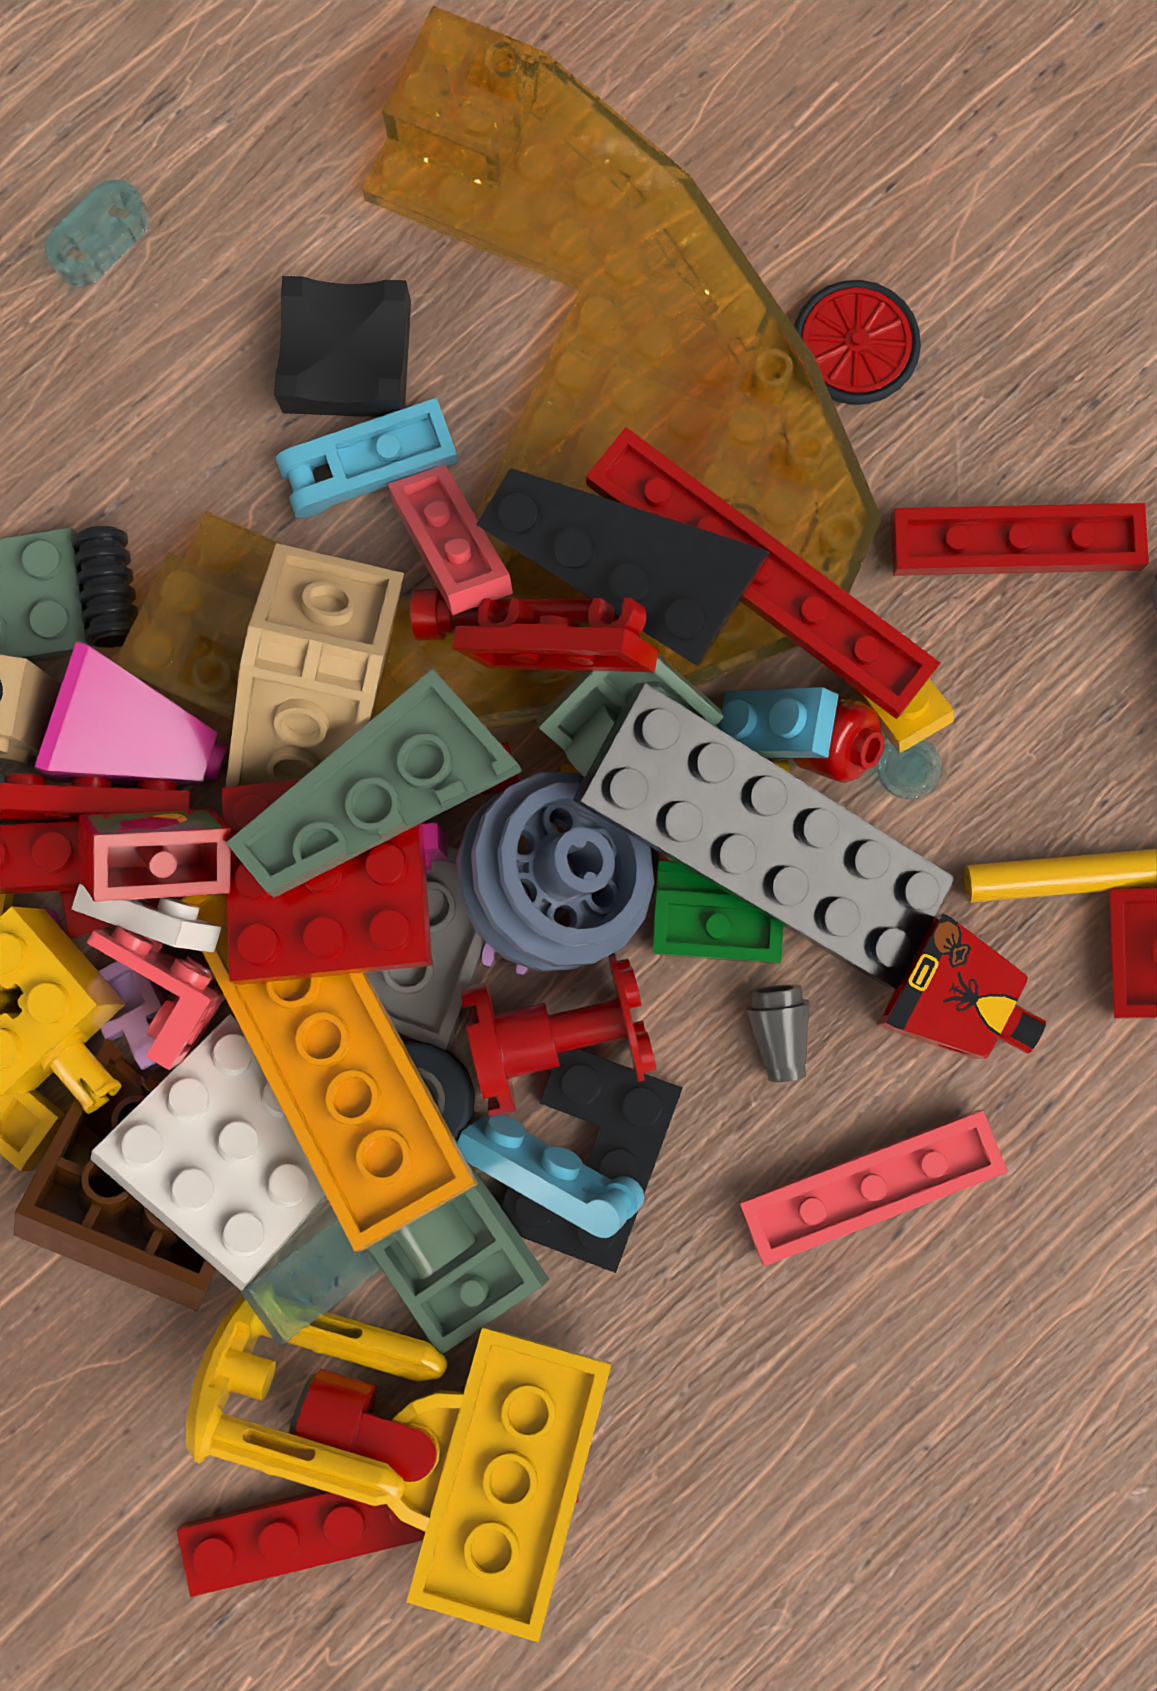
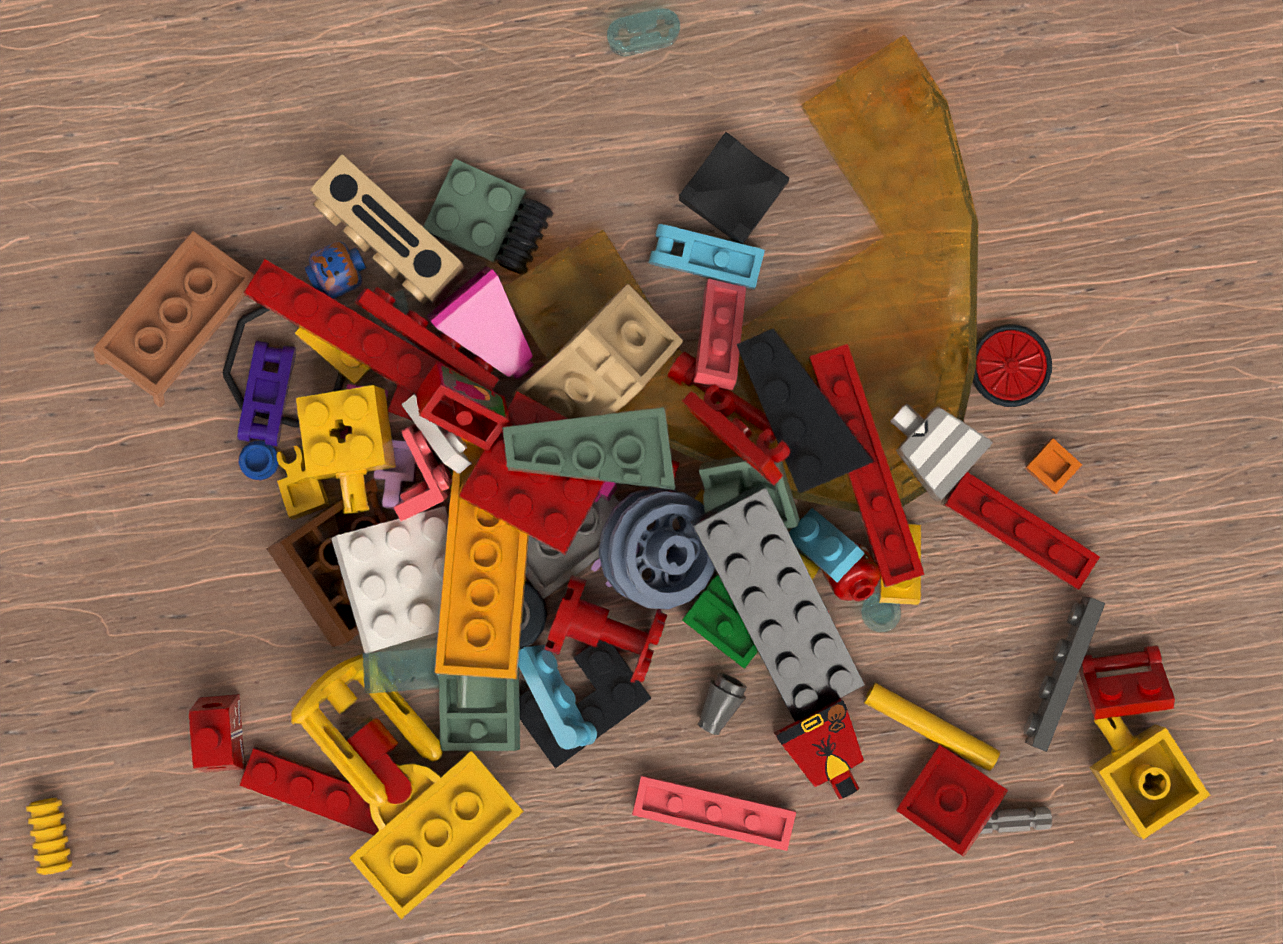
camera: 25 degrees right, 5 degrees up
(108, 1548) = (217, 734): none -> red torso
(842, 485) = (938, 448): none -> torso
(1001, 430) = (1053, 466): none -> orange plate

